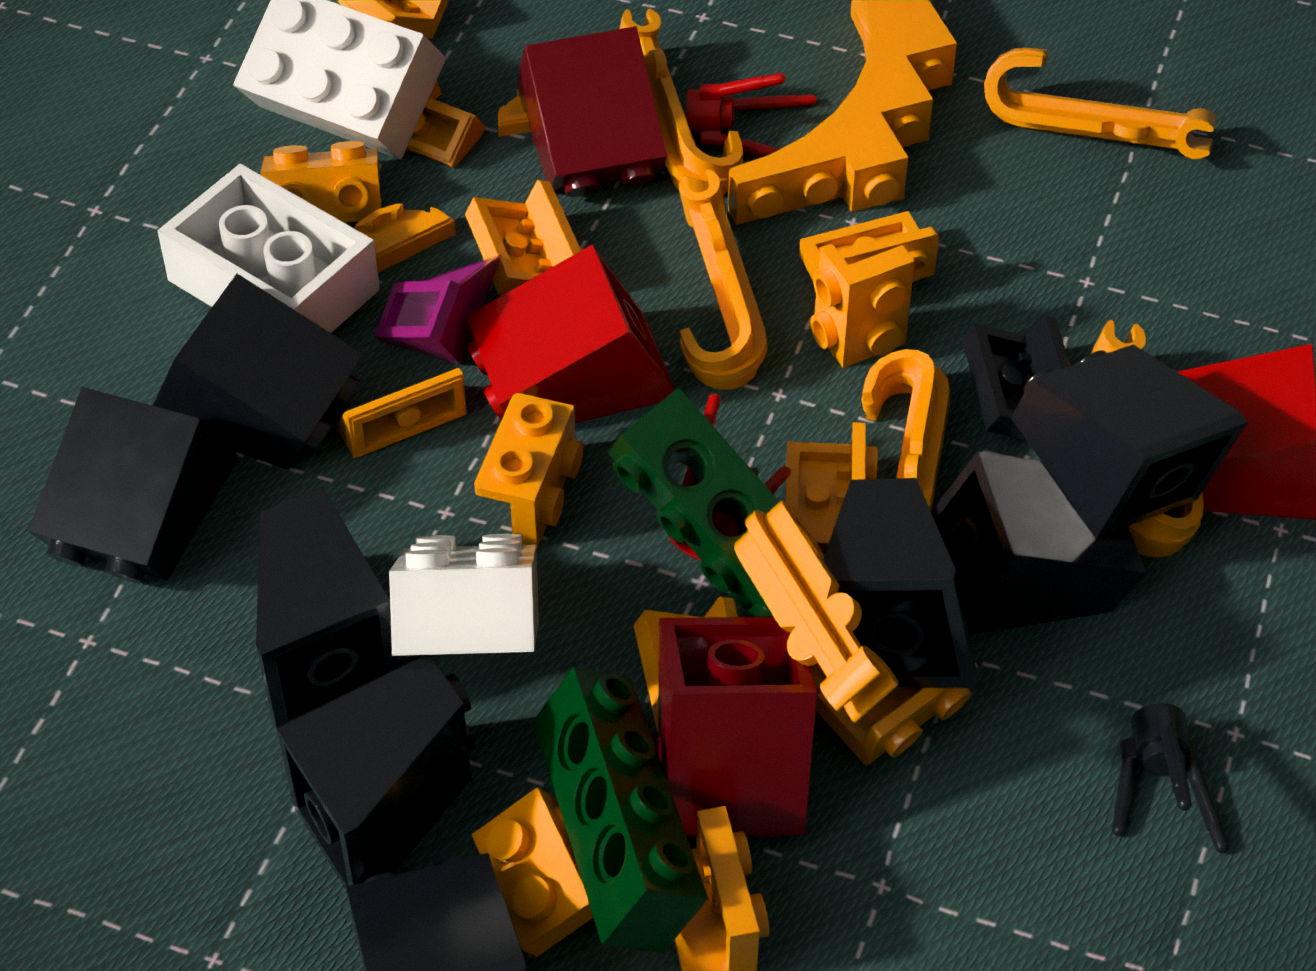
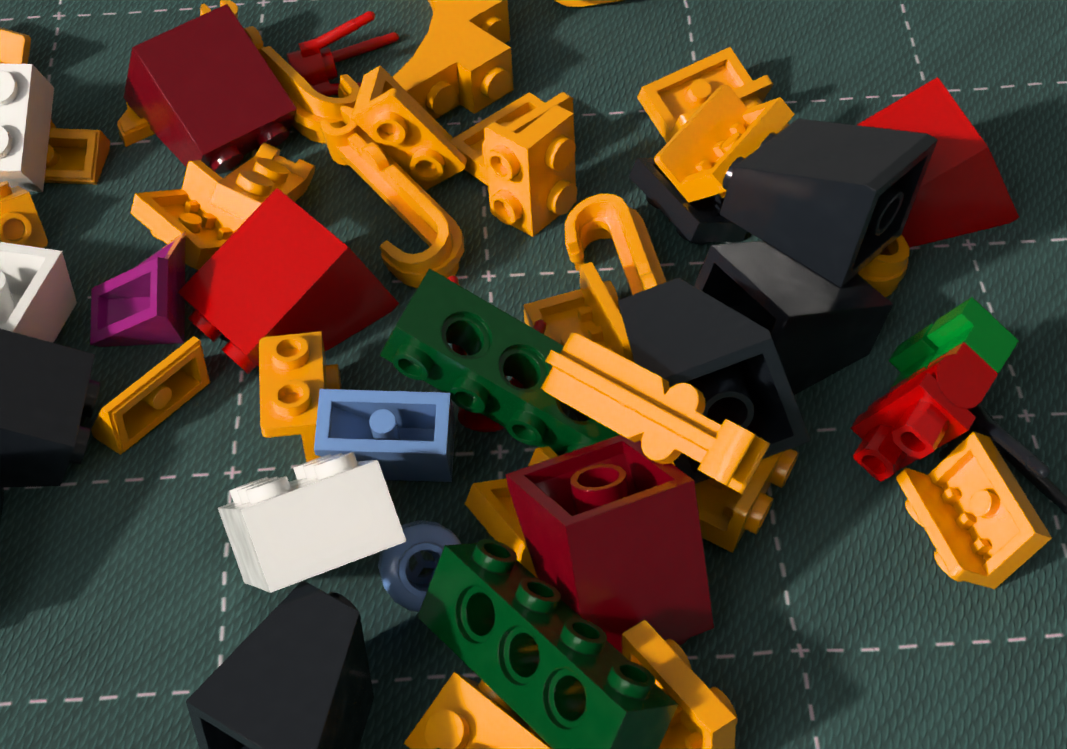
camera: 20 degrees left, 5 degrees down
(317, 609) = (167, 586): black slope -> none
(404, 232) = (83, 244): light orange tile -> none
(539, 672) = (401, 583): none -> medium blue head
(590, 531) = (401, 429): none -> medium blue slope
(607, 222) = (257, 178): none -> light orange plate
(759, 214) = (405, 130): none -> light orange bracket
(1052, 334) = (715, 138): none -> light orange bracket
(1084, 275) = (680, 94): none -> light orange bracket
(1109, 817) = (974, 513): none -> light orange bracket
(1159, 663) = (941, 379): none -> red hips

